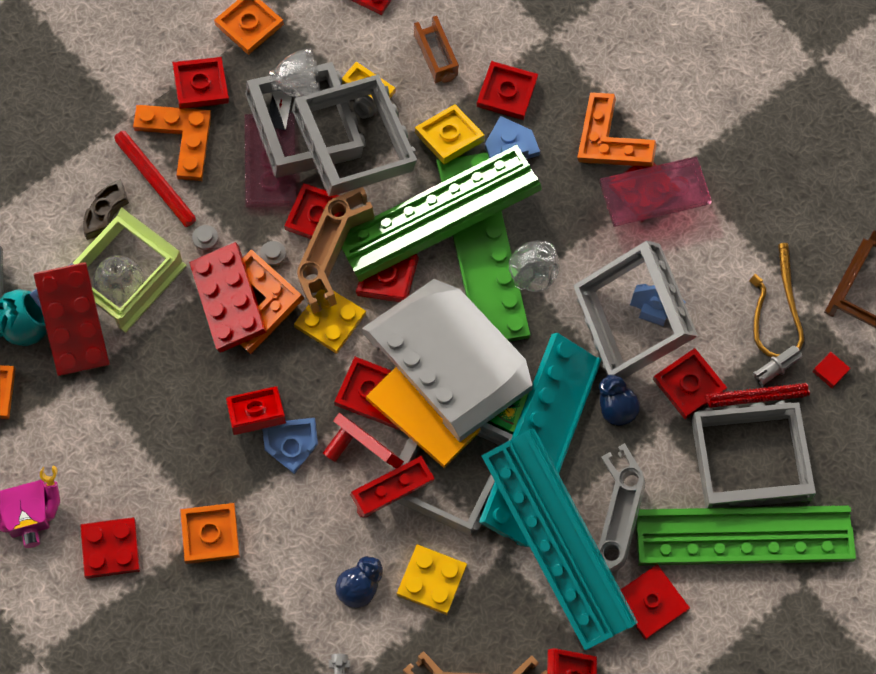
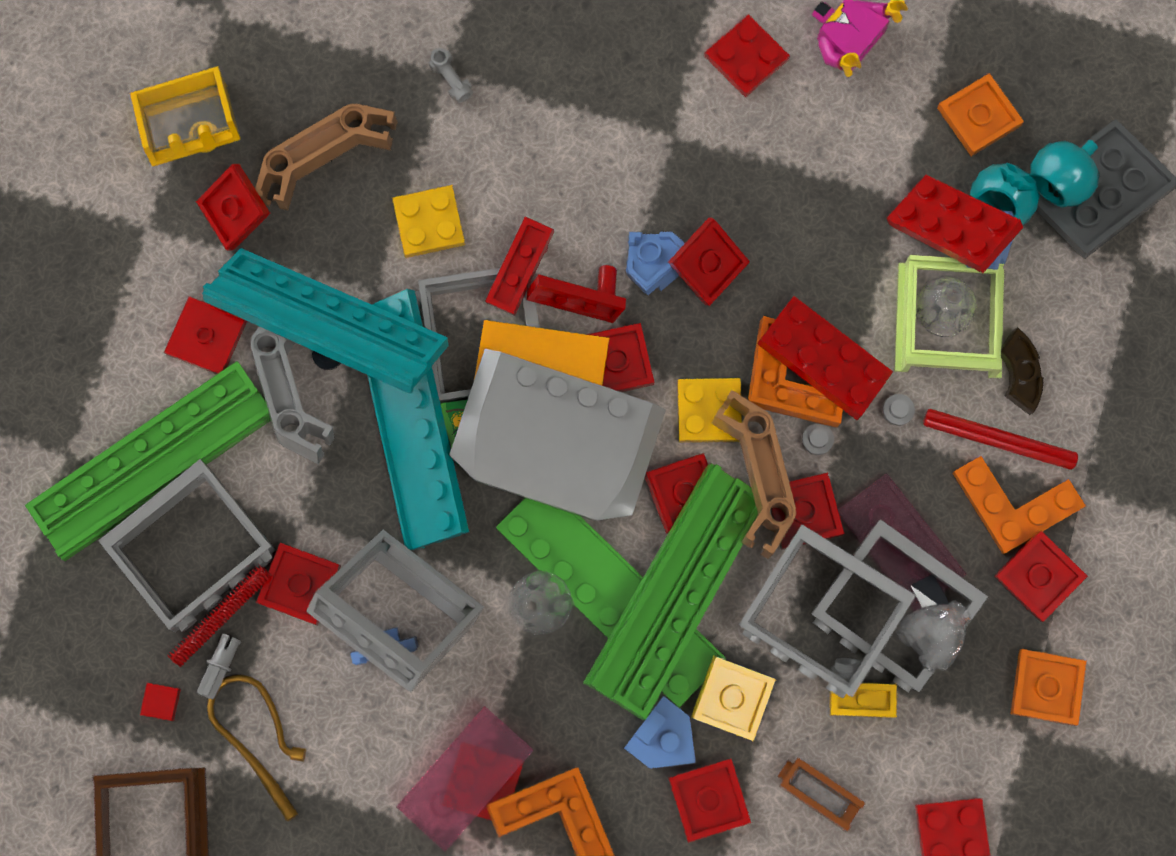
camera: 150 degrees right, 10 degrees up
(209, 533) = (665, 125): orange plate -> none
(359, 584) = (494, 172): dark blue hair -> none
(617, 401) = (359, 513): dark blue hair -> none

